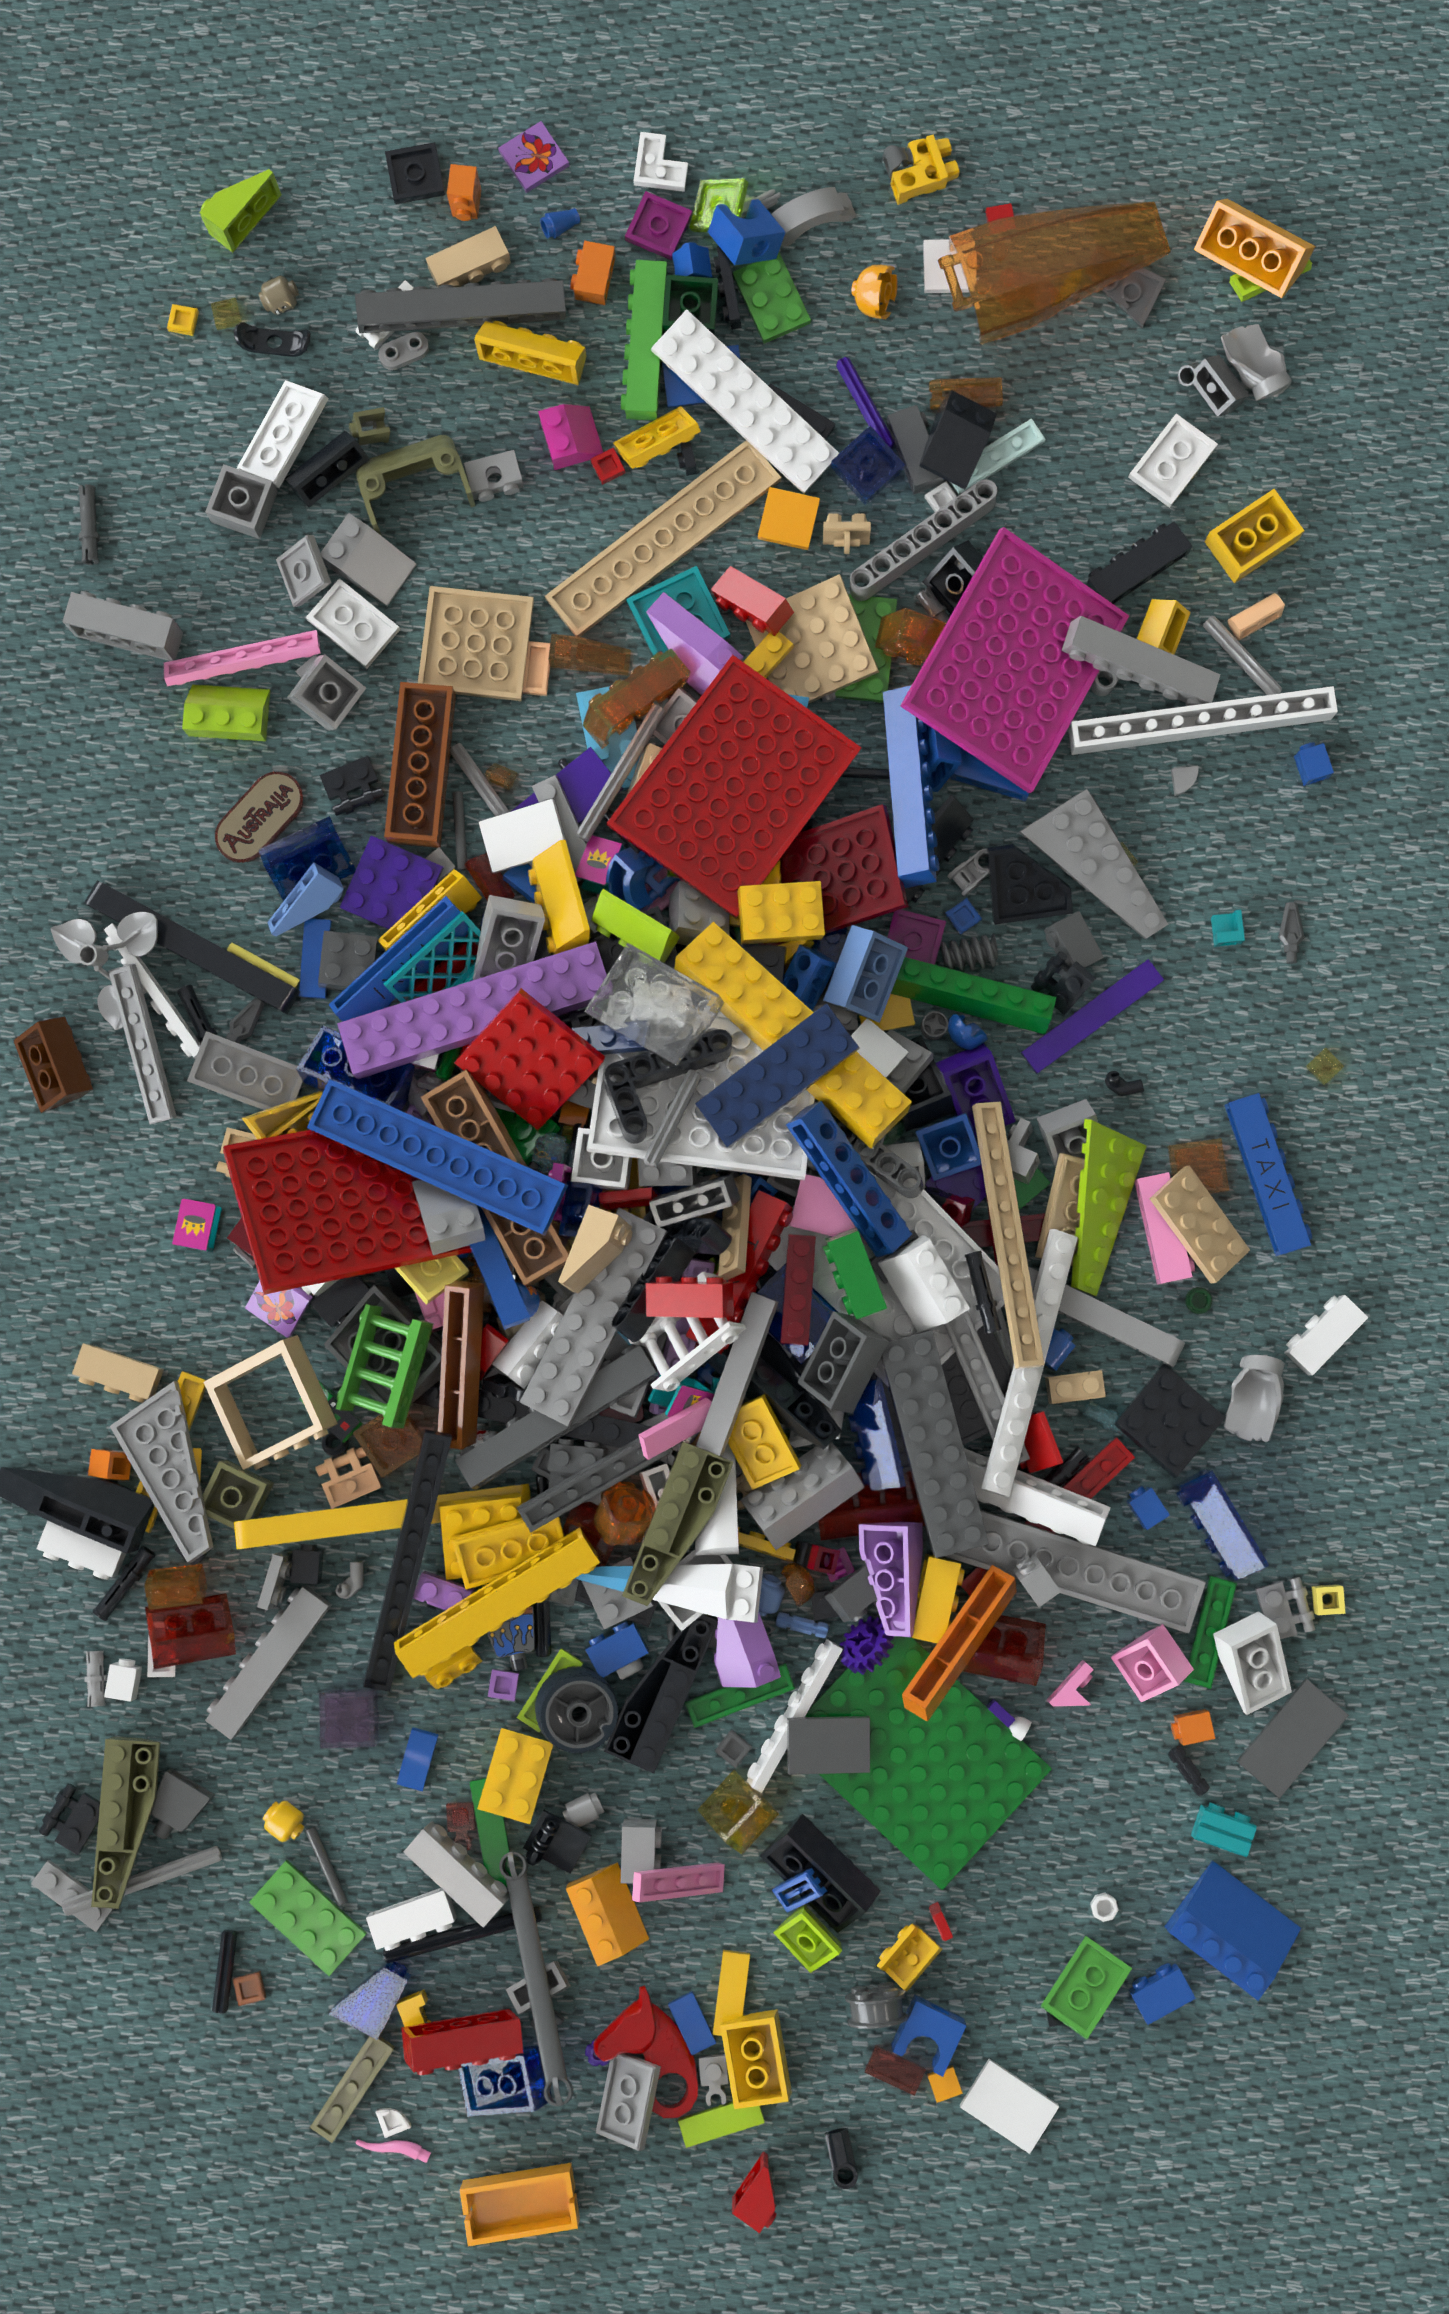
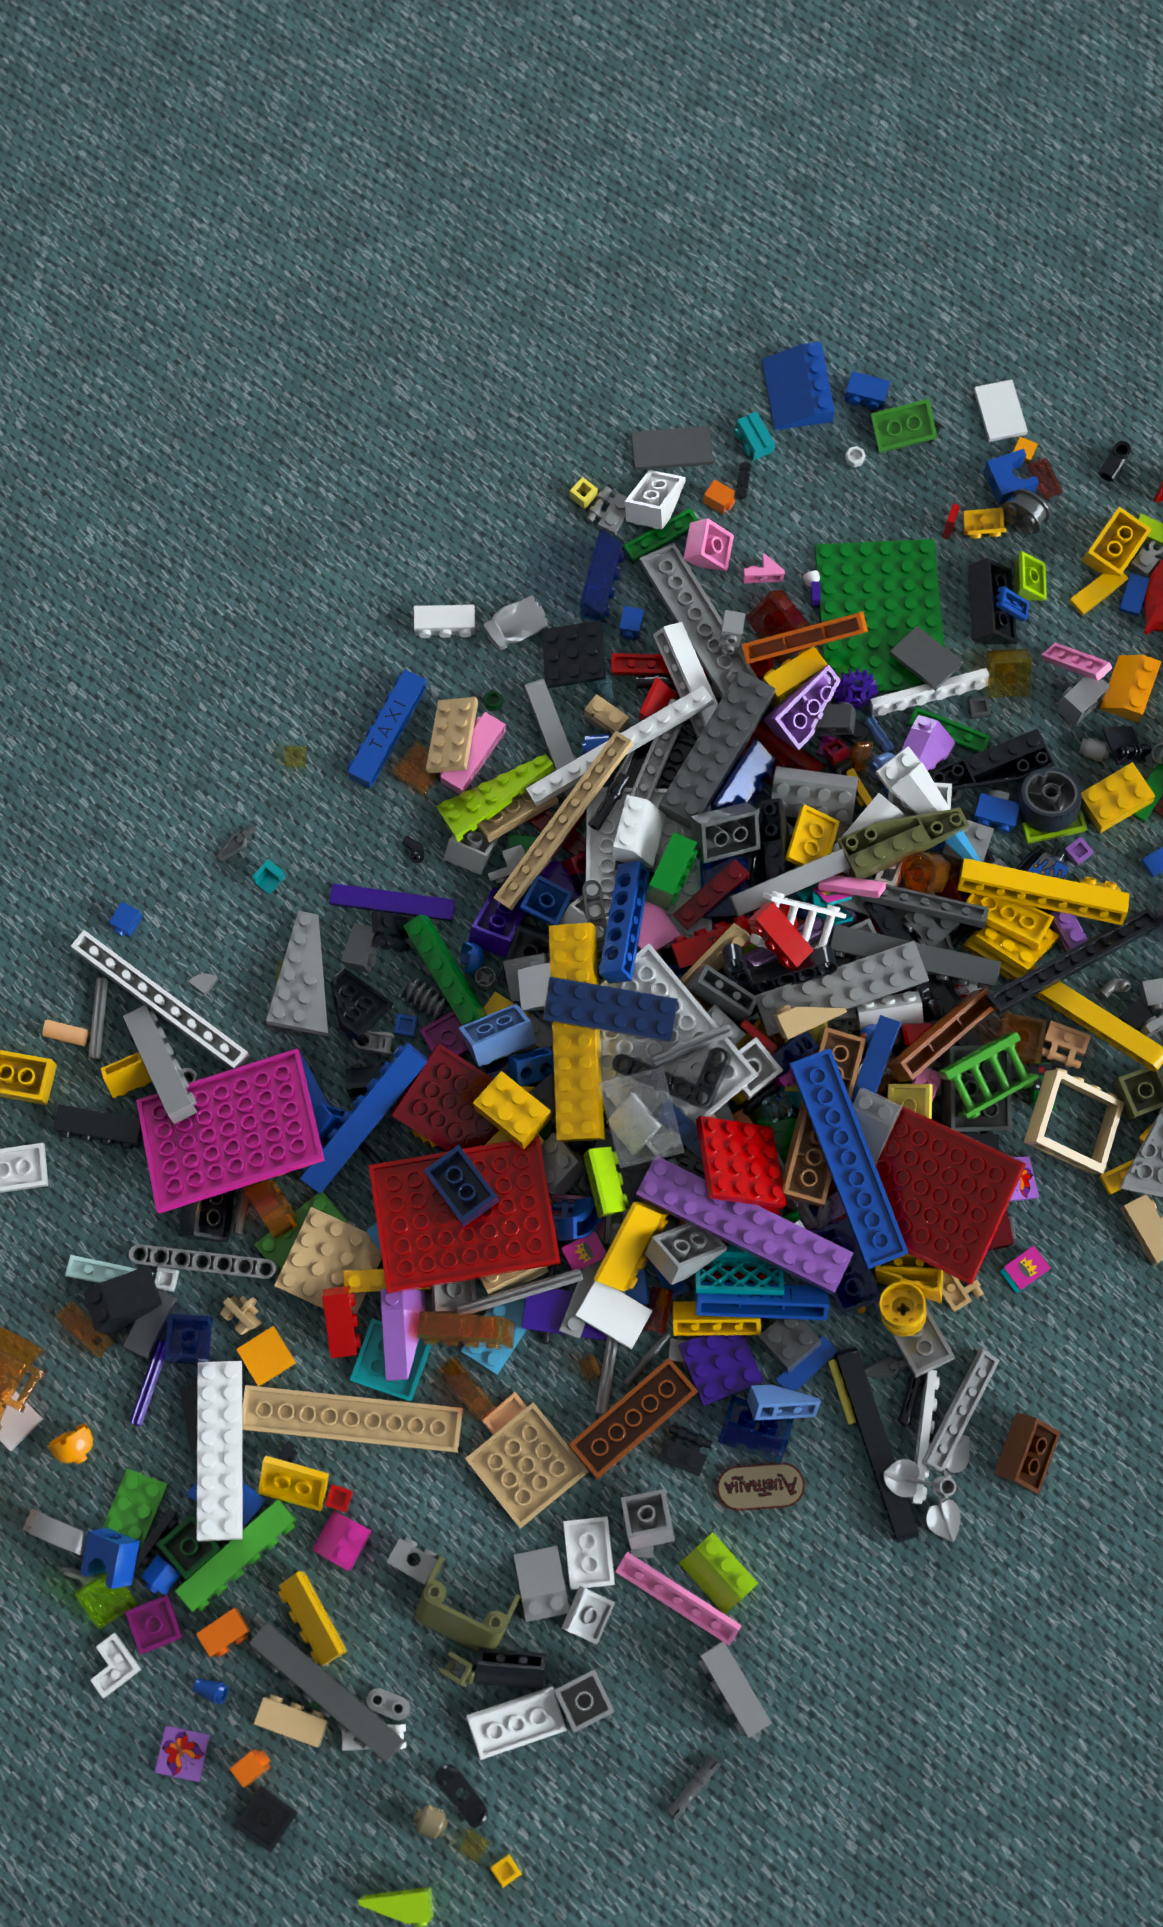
camera: 140 degrees left, 10 degrees down
(269, 1061) = (899, 1297): none -> yellow wheel
(757, 800) = (461, 1186): none -> dark blue brick

